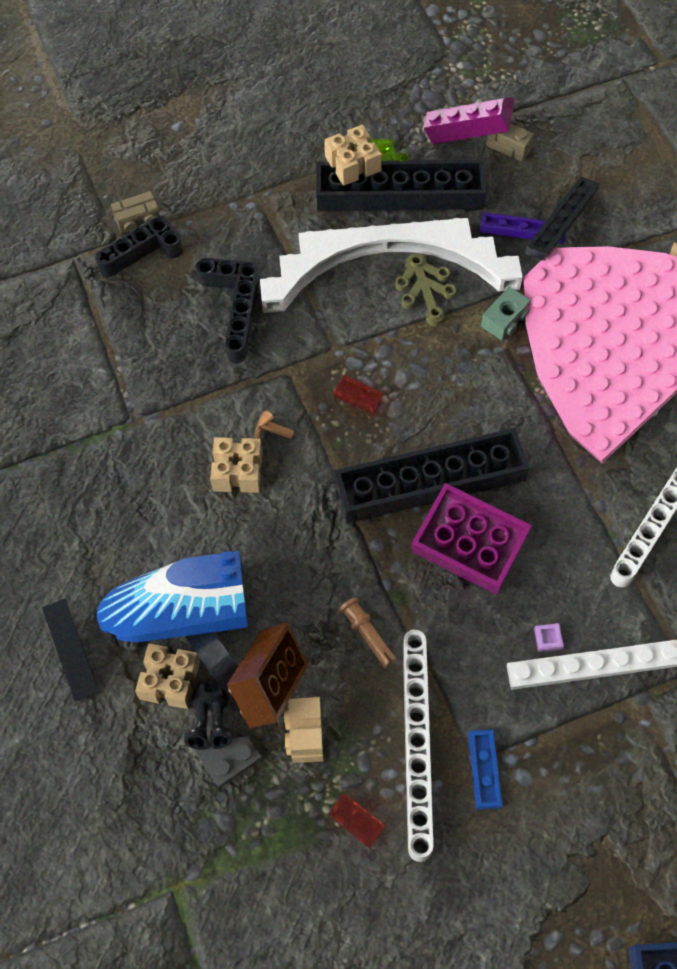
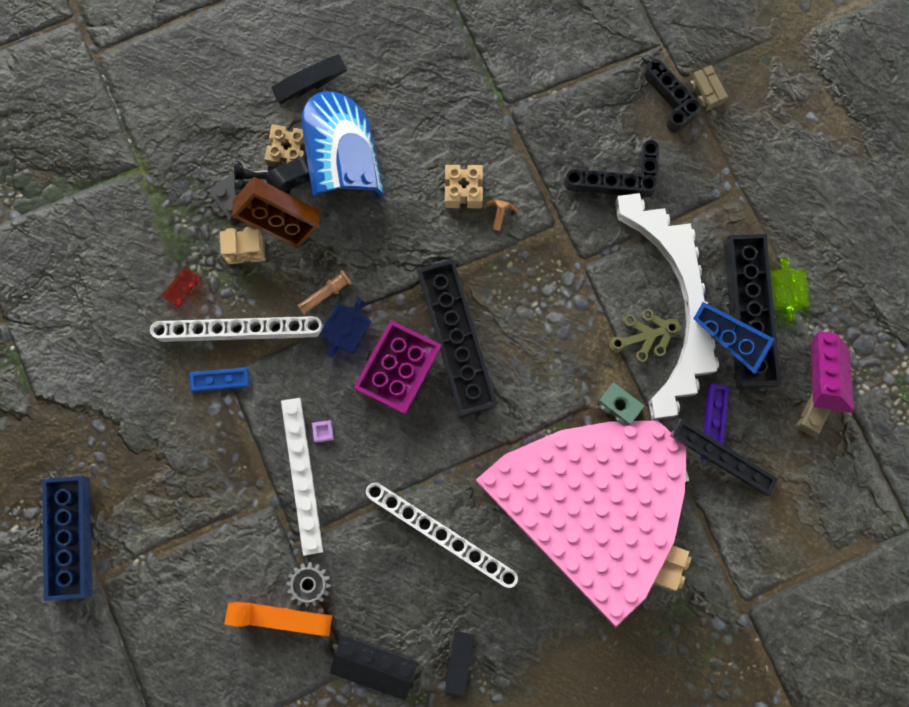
camera: 85 degrees right, 15 degrees up
(353, 155) = (780, 266): tan brick -> none
(358, 394) = (534, 281): clear red plate -> none
(415, 606) = (345, 328): none -> clear blue plate
(439, 185) = (737, 337): none -> blue wedge

